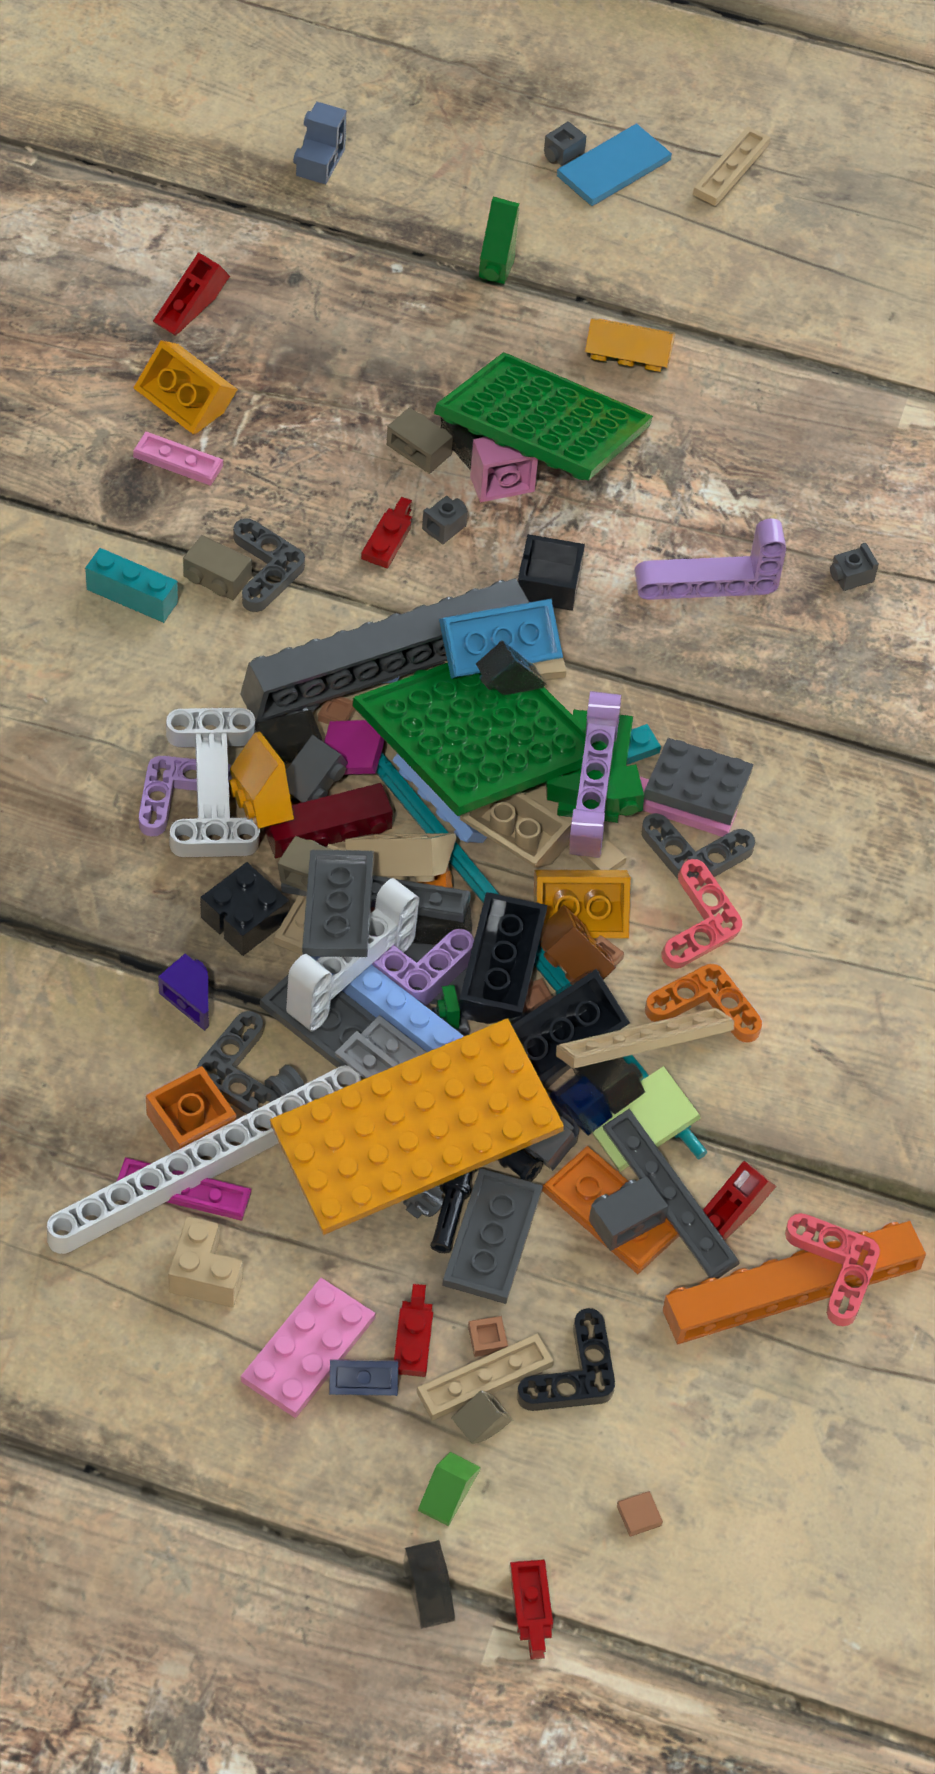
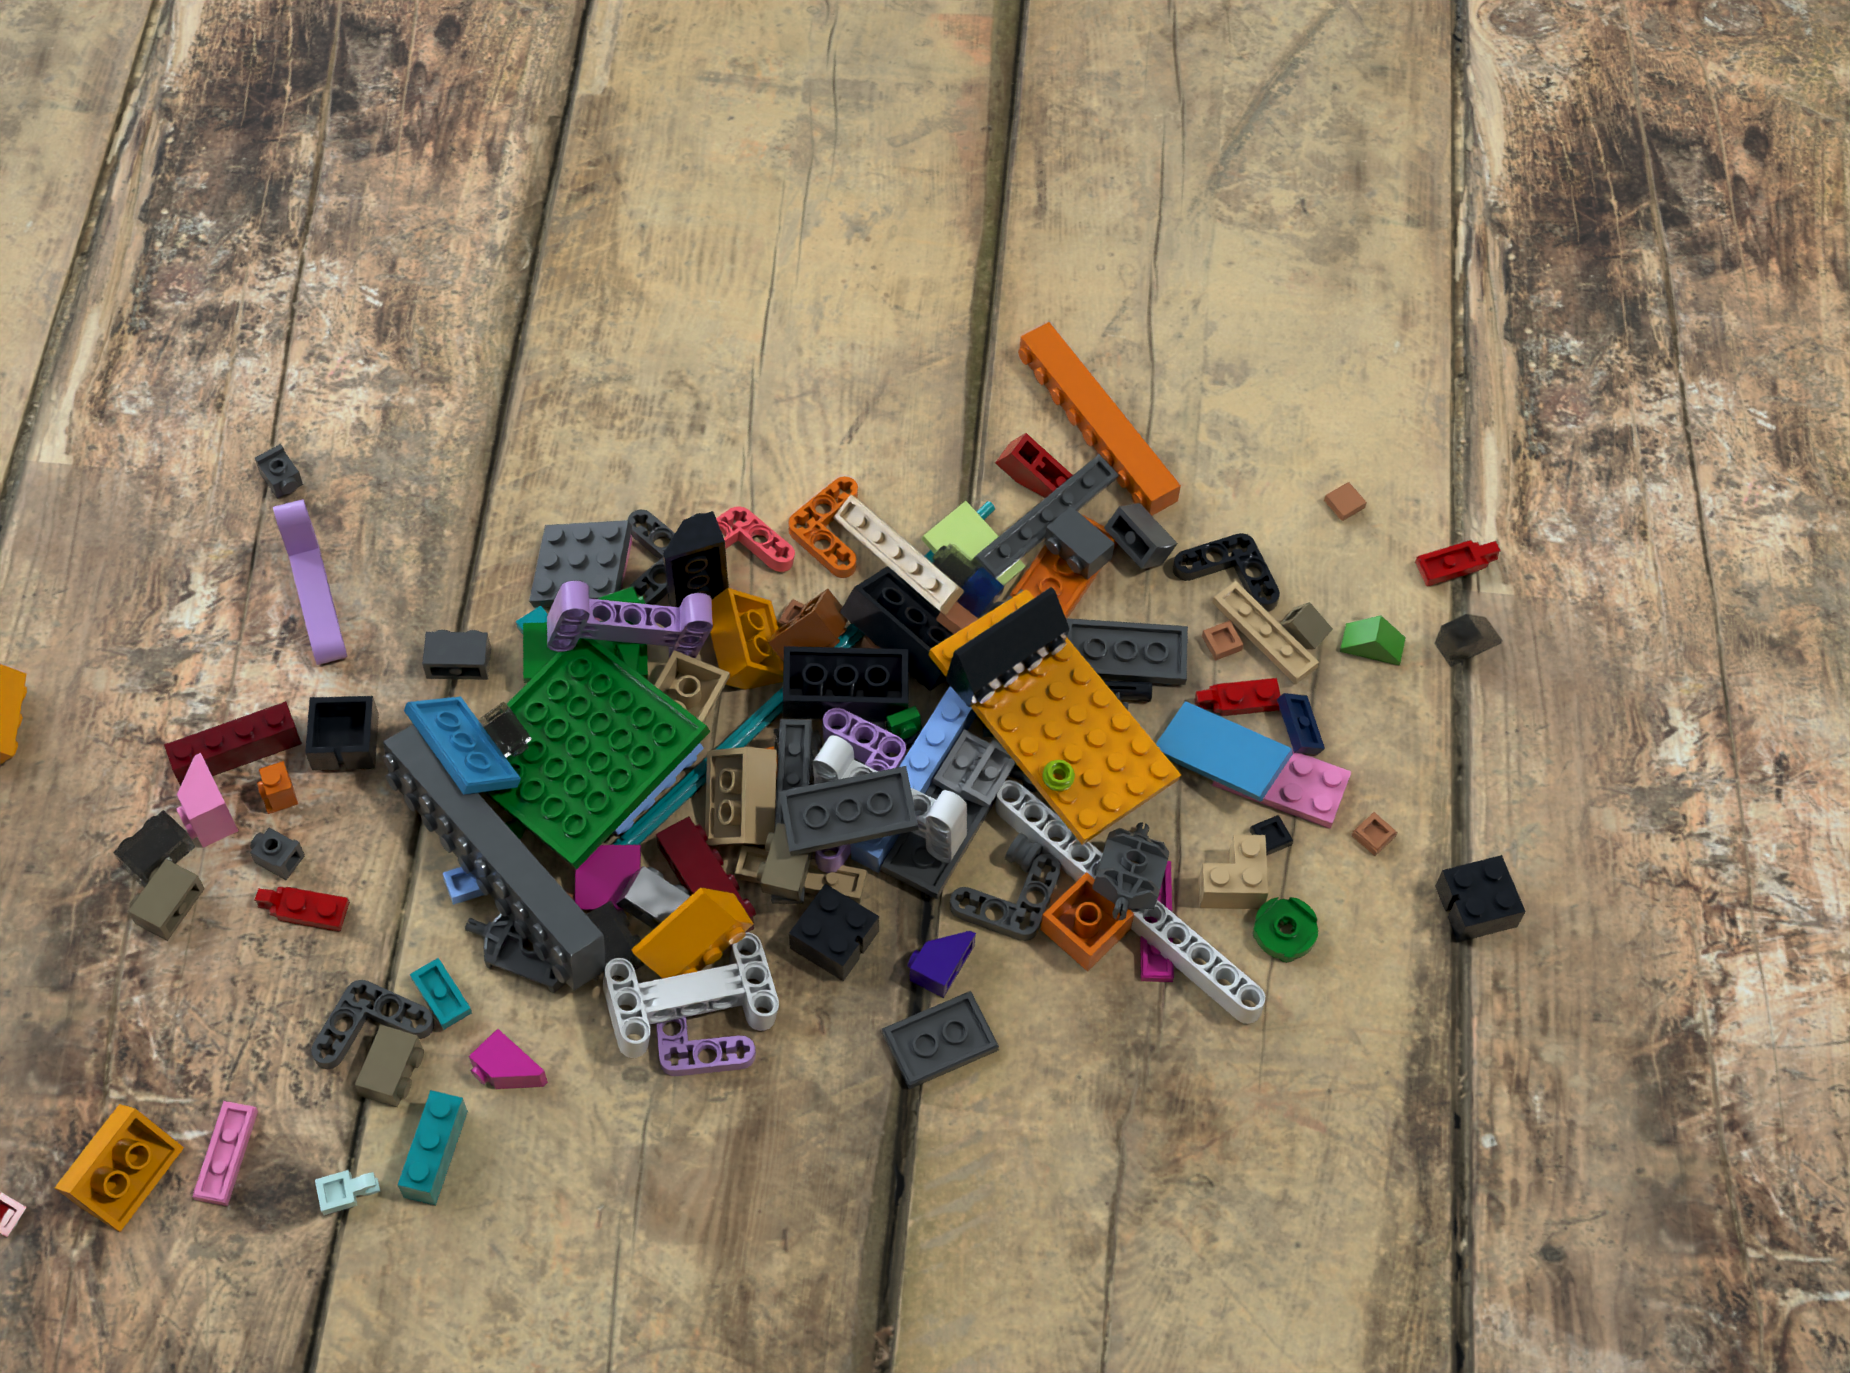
camera: 100 degrees left, 5 degrees up
(111, 1488) = (1485, 896): none -> black piece
(116, 522) = (340, 1190): none -> light aqua plate
(116, 978) = (940, 1039): none -> dark grey tile
(141, 1316) = (1284, 911): none -> green plate
(193, 647) = (505, 1064): none -> dark pink slope
(206, 1152) = (1126, 882): none -> dark grey plate
(220, 1418) = (1374, 834): none -> nougat tile
(246, 1319) = (1275, 833): none -> black tile
(275, 613) = (441, 993): none -> teal plate
(337, 1090) = (1060, 767): none -> lime plate
(346, 1287) = (1224, 751): none -> dark azure tile
(479, 1070) = (1008, 649): none -> black slope
(509, 516) = (276, 788): none -> orange brick
(543, 416) = (132, 766): green plate -> none
(555, 1074) = (956, 618): none -> nougat tile
(562, 504) = (236, 741): none -> dark red brick
(619, 669) = (456, 655): none -> dark grey brick
(628, 1279) = (1140, 535): none -> dark grey brick
(654, 847) = (696, 559): none -> black slope
(846, 1254) = (1074, 371): coral beam -> none

